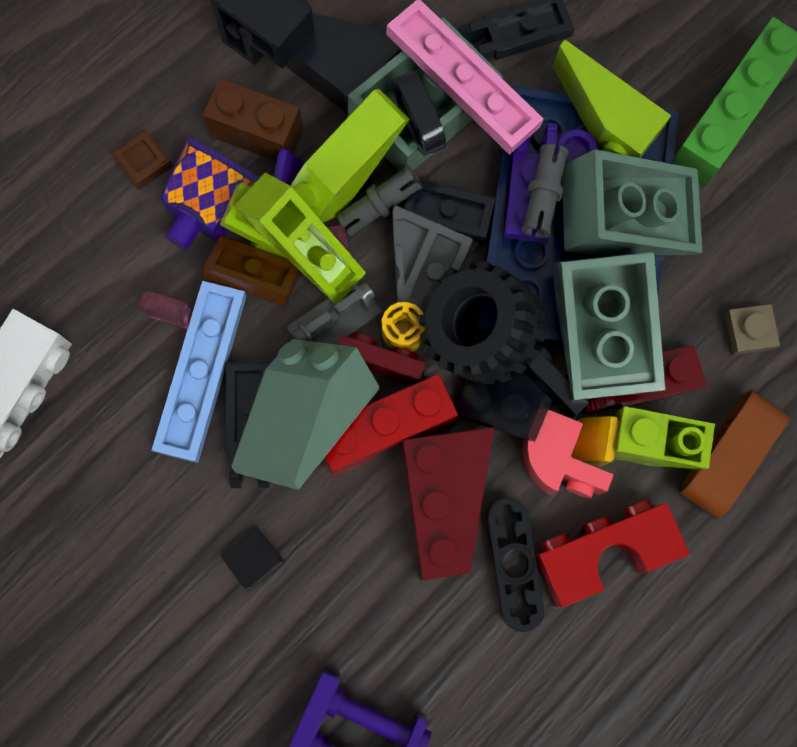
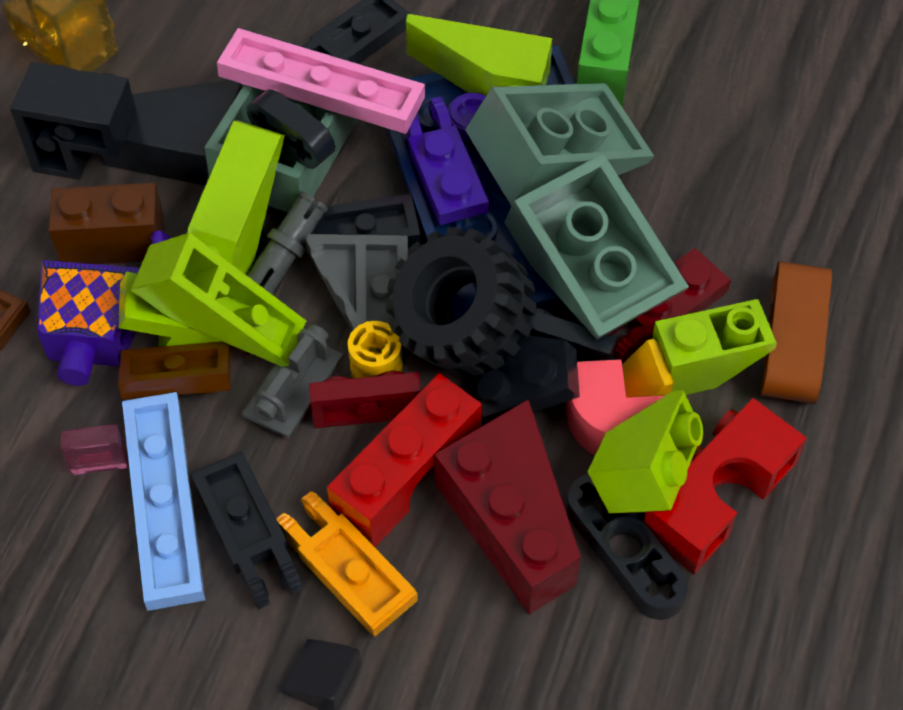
camera: 20 degrees left, 20 degrees down
(302, 410) = (304, 466): sand green slope -> none
(315, 509) = (349, 566): none -> light orange hinge
(545, 191) = (461, 153): dark grey pin -> none
(560, 516) = (647, 456): none -> lime slope
(751, 329) = (746, 213): dark tan plate -> none

